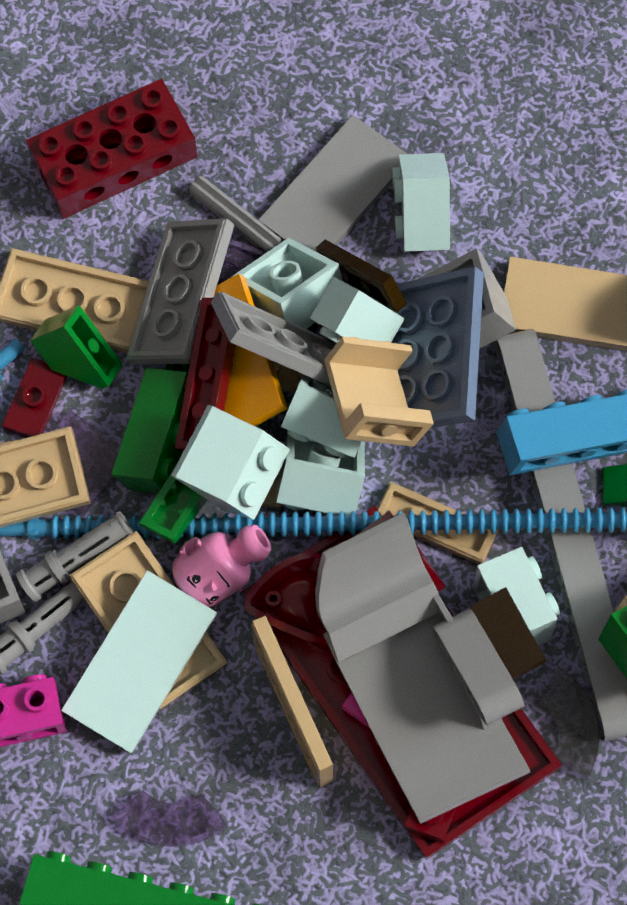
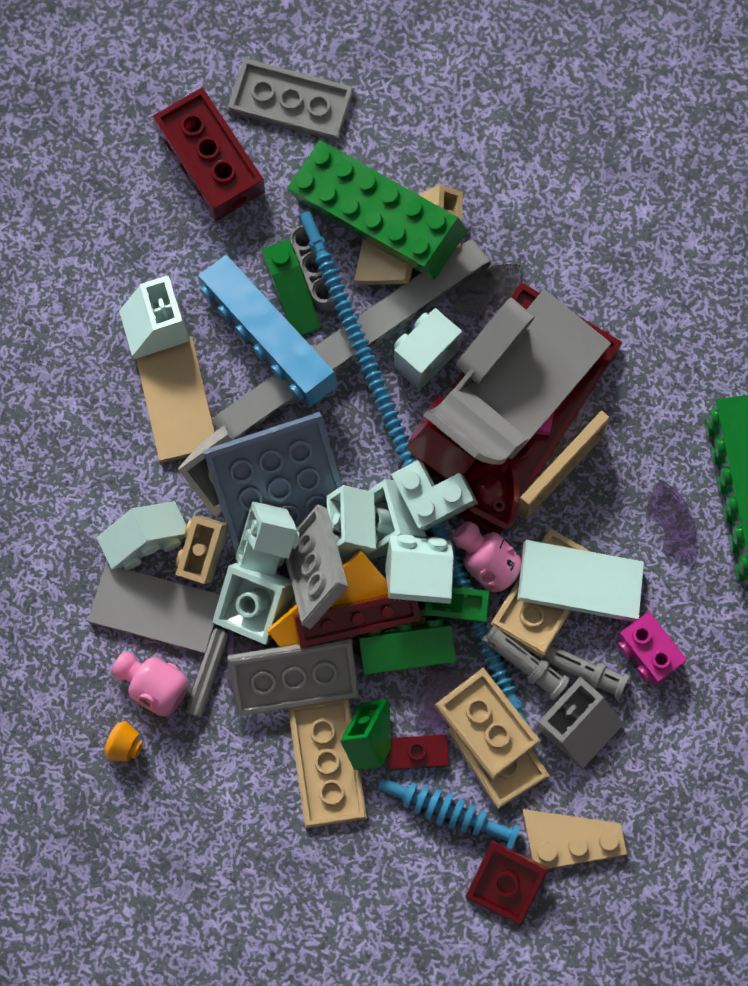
camera: 115 degrees left, 5 degrees up
(112, 148) = (193, 763): dark red brick -> none
(196, 97) = (123, 743): none -> light orange cone
(245, 149) = (152, 684): none -> bright pink piece
(313, 509) = (430, 502): none -> light aqua brick
(364, 276) = (229, 548): dark brown tile -> none
(371, 392) = (330, 490): tan panel -> none
(377, 246) = (201, 549): none -> tan brick
(468, 546) = (383, 457): tan tile -> none
(508, 633) = (461, 332): dark brown tile -> none

